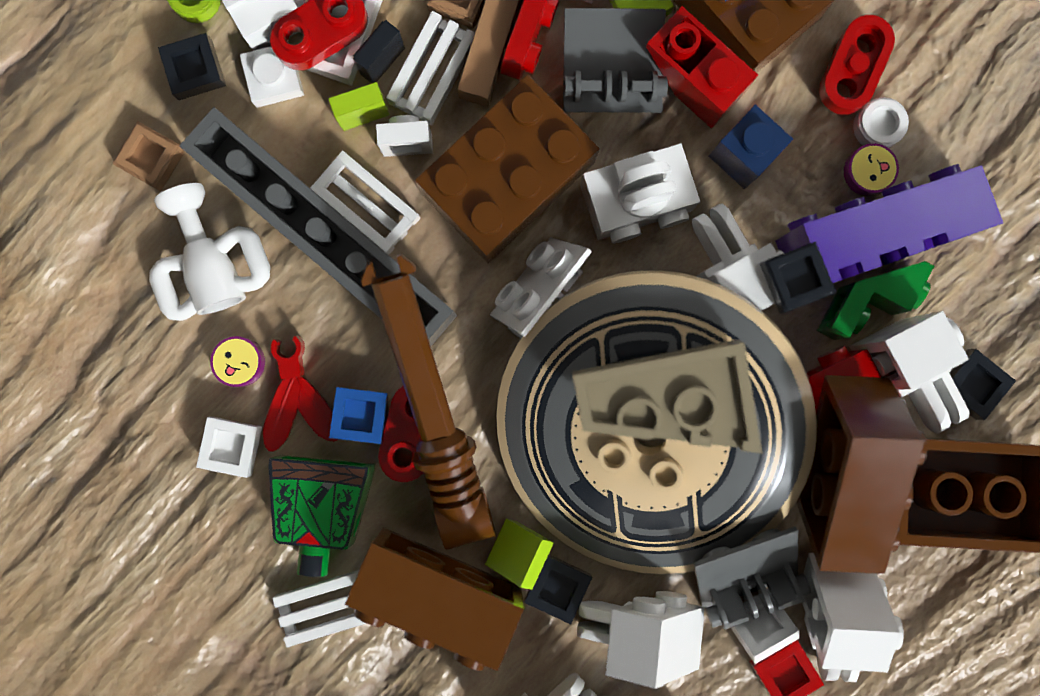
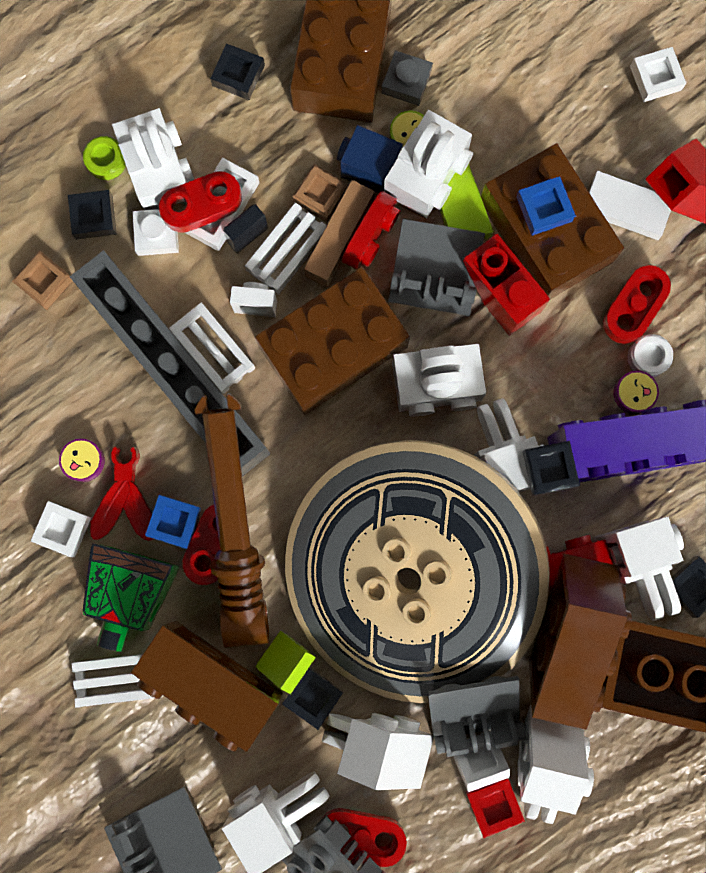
camera: 15 degrees right, 5 degrees down
(204, 261) = (71, 374): white piece -> none
(359, 106) = (221, 269): lime tile -> none
(550, 269) = (353, 427): white hinge -> none
(677, 395) = (430, 546): dark tan wing -> none
(750, 147) = (536, 356): dark blue brick -> none
(890, 292) = (635, 495): green slope -> none

